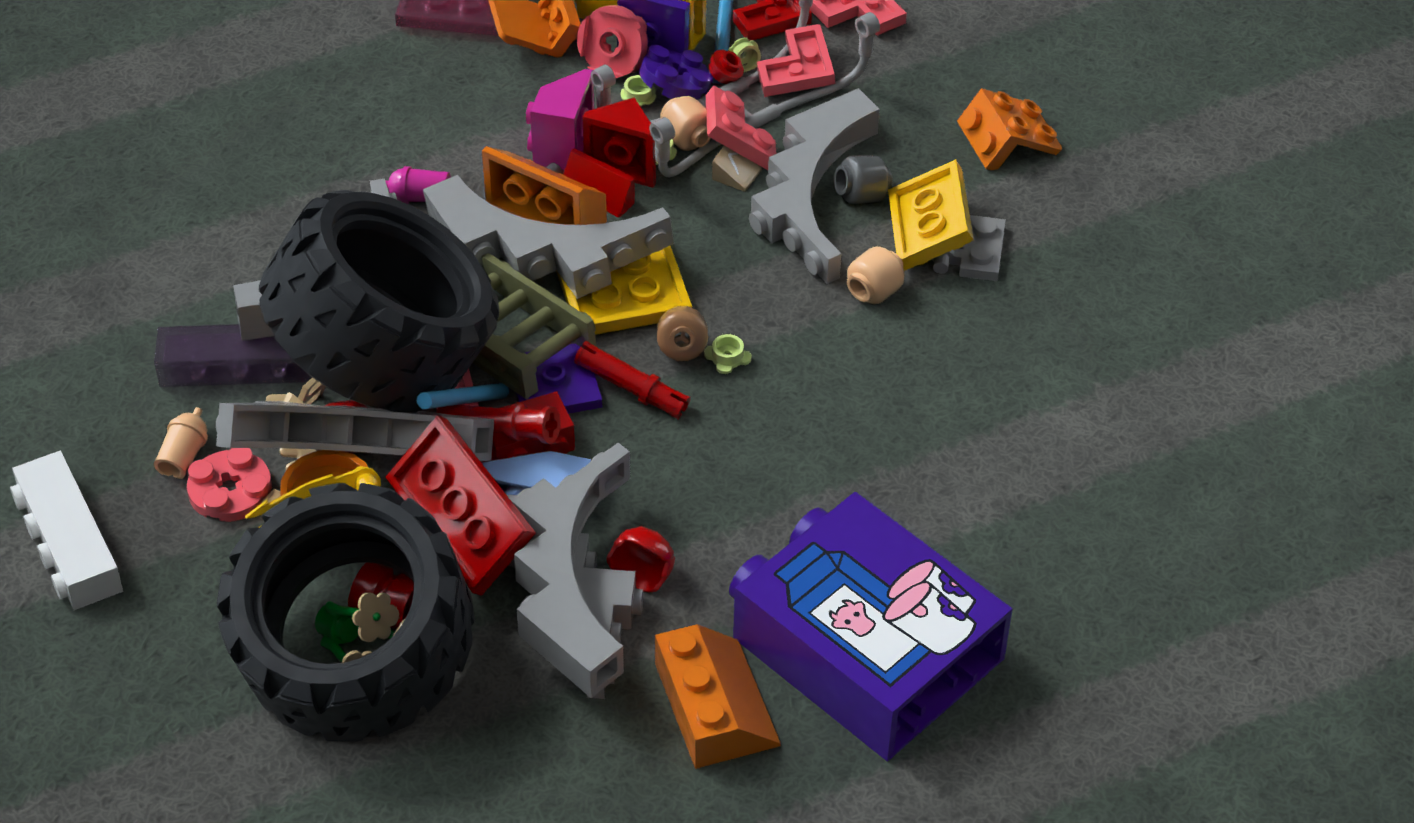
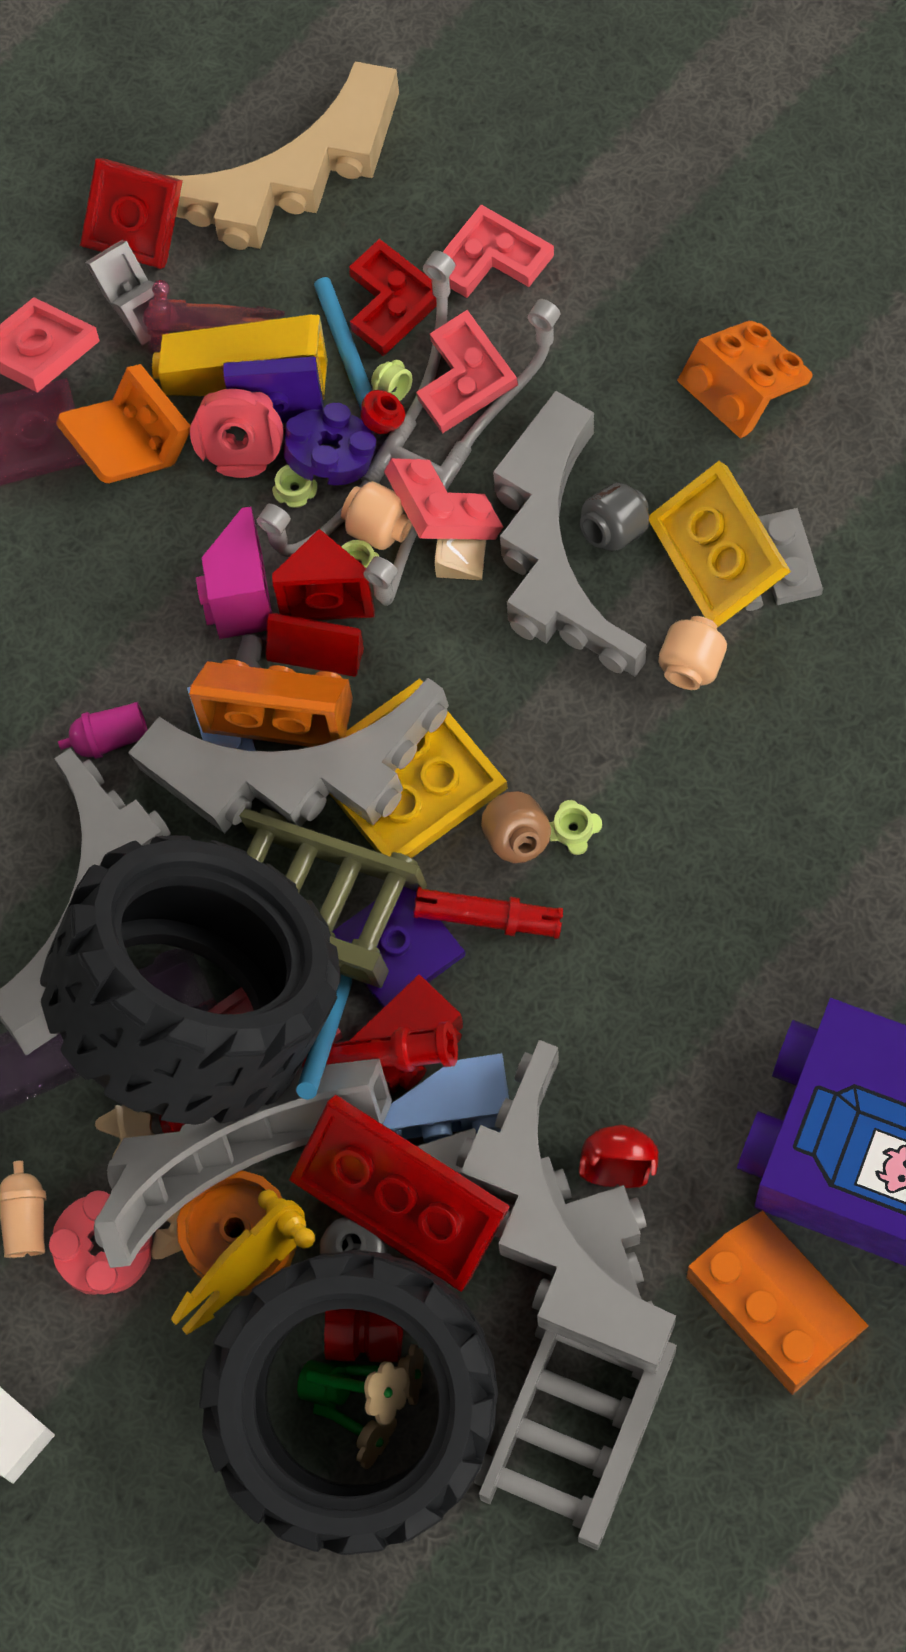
camera: 15 degrees left, 20 degrees up
(524, 754) = (609, 1464): none -> light grey fence

